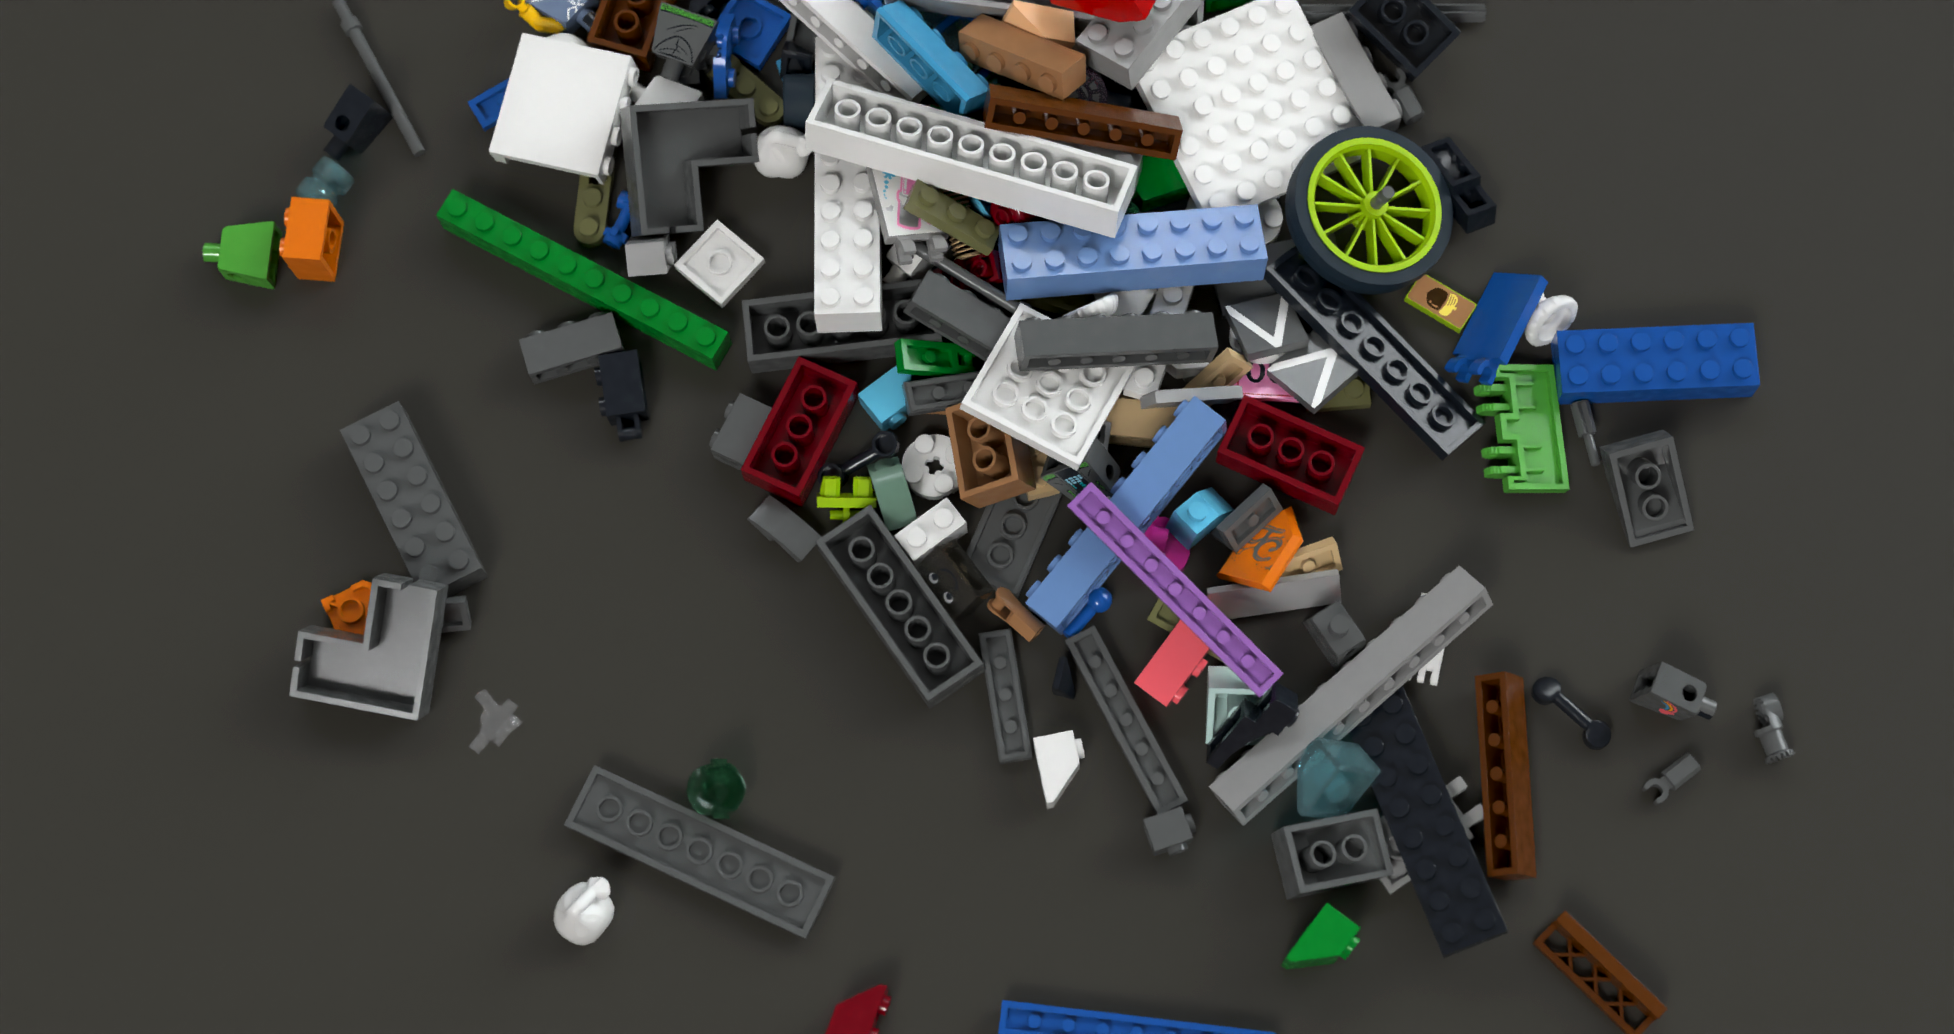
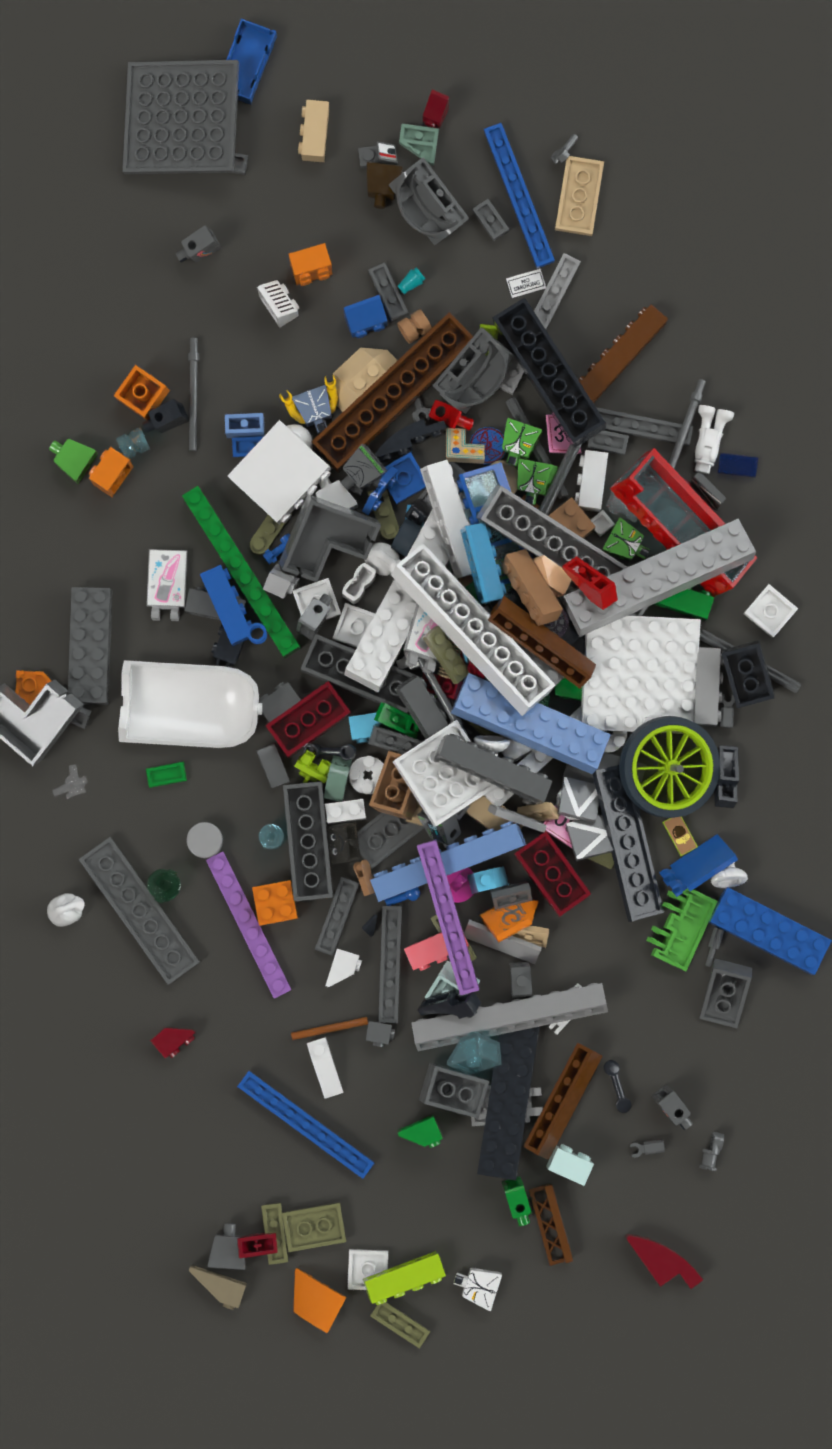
camera: 20 degrees right, 10 degrees up
(298, 108) = (141, 392): none -> orange brick
(475, 73) = (244, 425): none -> medium blue brick
(481, 354) = (167, 582): none -> tile
(593, 333) = (227, 607): none -> blue hinge
(607, 506) = (187, 705): none -> white panel
(631, 630) = (166, 774): none -> green tile
(726, 279) = (310, 621): none -> dark grey torso
(742, 692) = (204, 840): none -> light grey head
(766, 202) = (355, 588): none -> white brick
(790, 264) = (352, 625): none -> white plate
(841, 629) = (271, 836): none -> clear light blue wheel
(879, 782) = (248, 925): none -> medium lavender plate
(901, 724) = (275, 903): none -> orange brick
(1089, 868) = (329, 1028): none -> dark orange bar
(1115, 929) = (325, 1067): none -> white slope
(1517, 955) = (516, 1195): none -> green torso
(1574, 863) = (570, 1164): none -> light aqua brick
(1801, 935) = (662, 1261): none -> dark red slope

